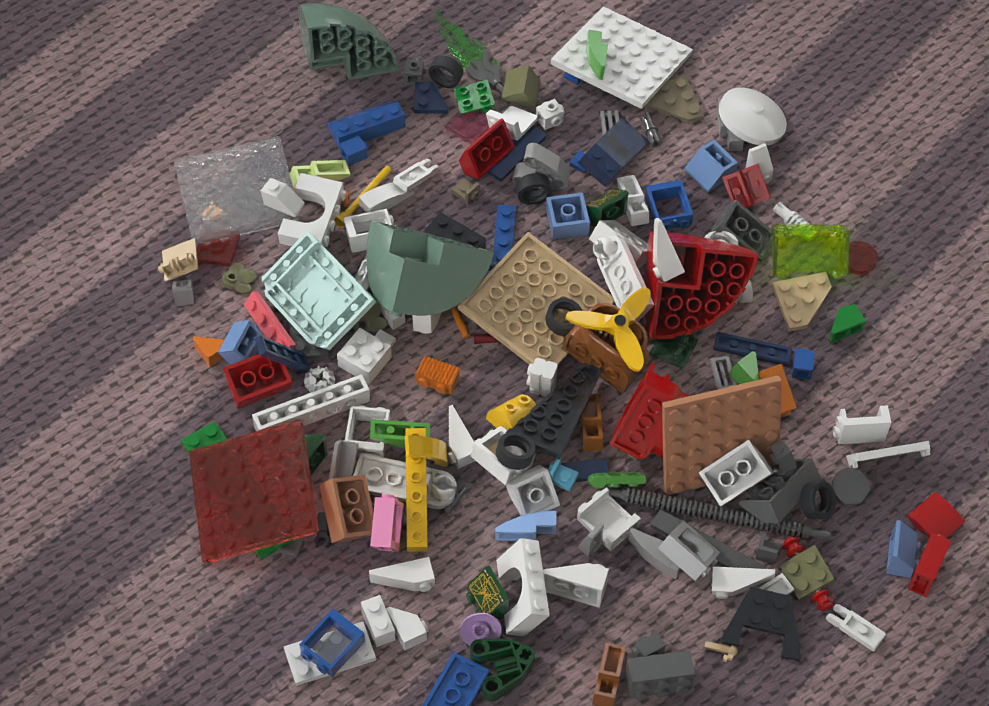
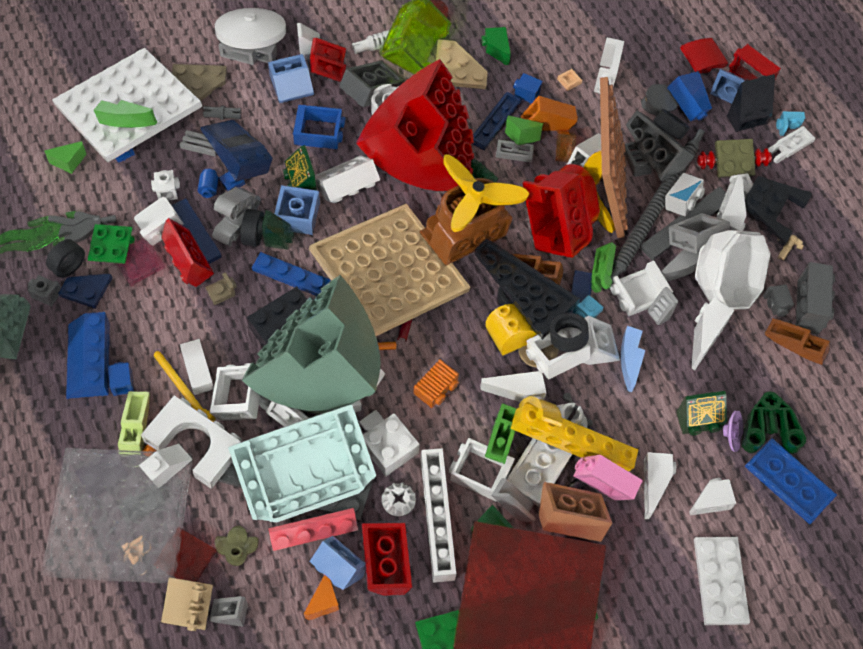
camera: 75 degrees left, 5 degrees up
(282, 354) = (375, 520): dark blue tile -> none
(344, 626) = (740, 562): blue window -> none
(378, 621) = (702, 522): white brick -> none
(415, 175) = (184, 329): white hinge -> none
(521, 87) = (116, 200): olive slope -> none
(532, 608) = (685, 362): white arch -> none
(537, 206) = (276, 231): none -> clear green slope
(542, 377) = (478, 289): white brick -> none
(549, 38) = (66, 156): none -> bright green slope
(560, 303) = (423, 238): black tyre -> none
(568, 144) = (208, 183): none -> blue brick
(619, 269) = (395, 185): white plate -> none
(636, 208) = (282, 150): white slope -> none
(646, 595) = (733, 267): none -> white rock
(664, 255) = (408, 129): white slope -> none
(736, 473) = (640, 168): white slope -> none
(736, 532) = (684, 194): none -> white brick
(767, 550) = (708, 179): dark grey panel -> none
(782, 457) = (632, 130): dark grey brick -> none
(837, 400) = (569, 79): none -> light nougat tile
(868, 511) = (691, 95): none -> blue slope
(879, 568) = (752, 103): none -> black slope
(887, 619) = (789, 119): none -> medium azure bracket
(923, 447) = (639, 61): white brick -> none

